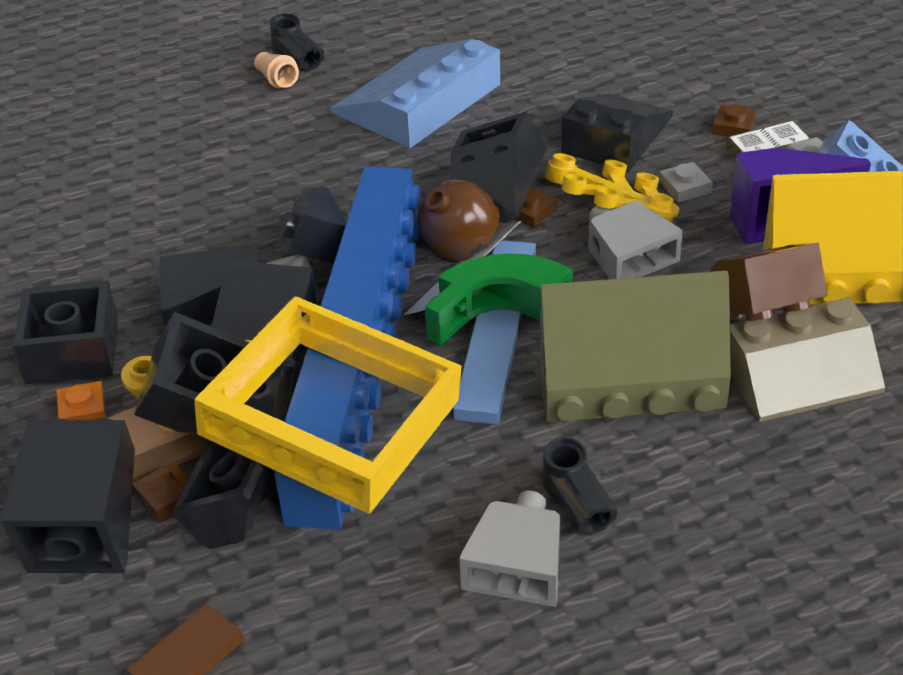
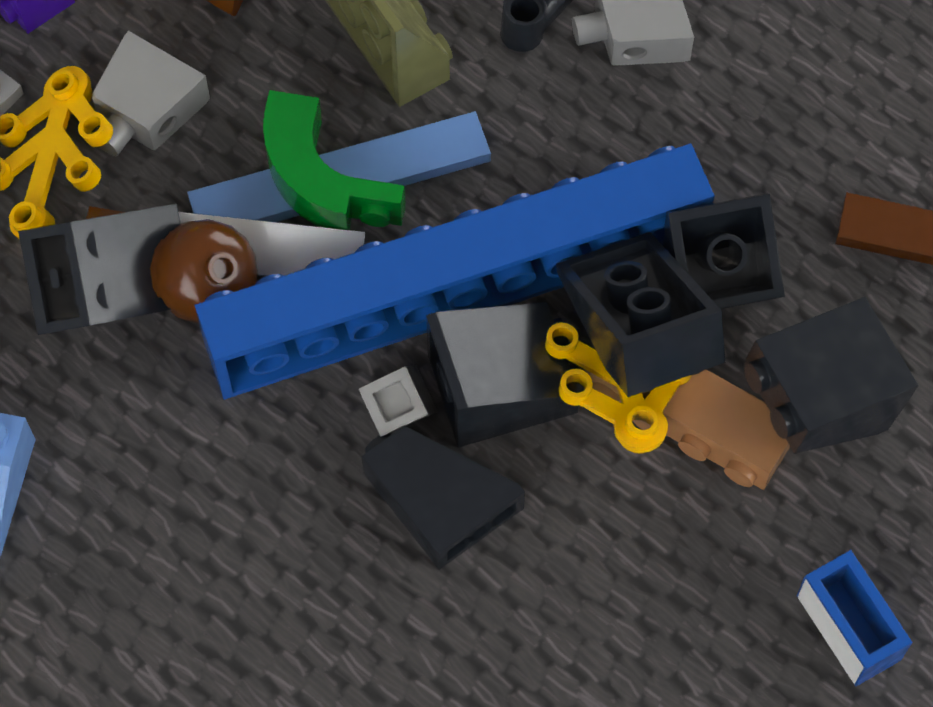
camera: 120 degrees left, 25 degrees up
(66, 332) = (602, 581): black brick -> none
(81, 402) = (672, 521): orange plate -> none
(161, 490) = (737, 344): reddish brown plate -> none
(300, 455) = (634, 81): yellow window -> none
(314, 226) = (301, 406): black slope -> none

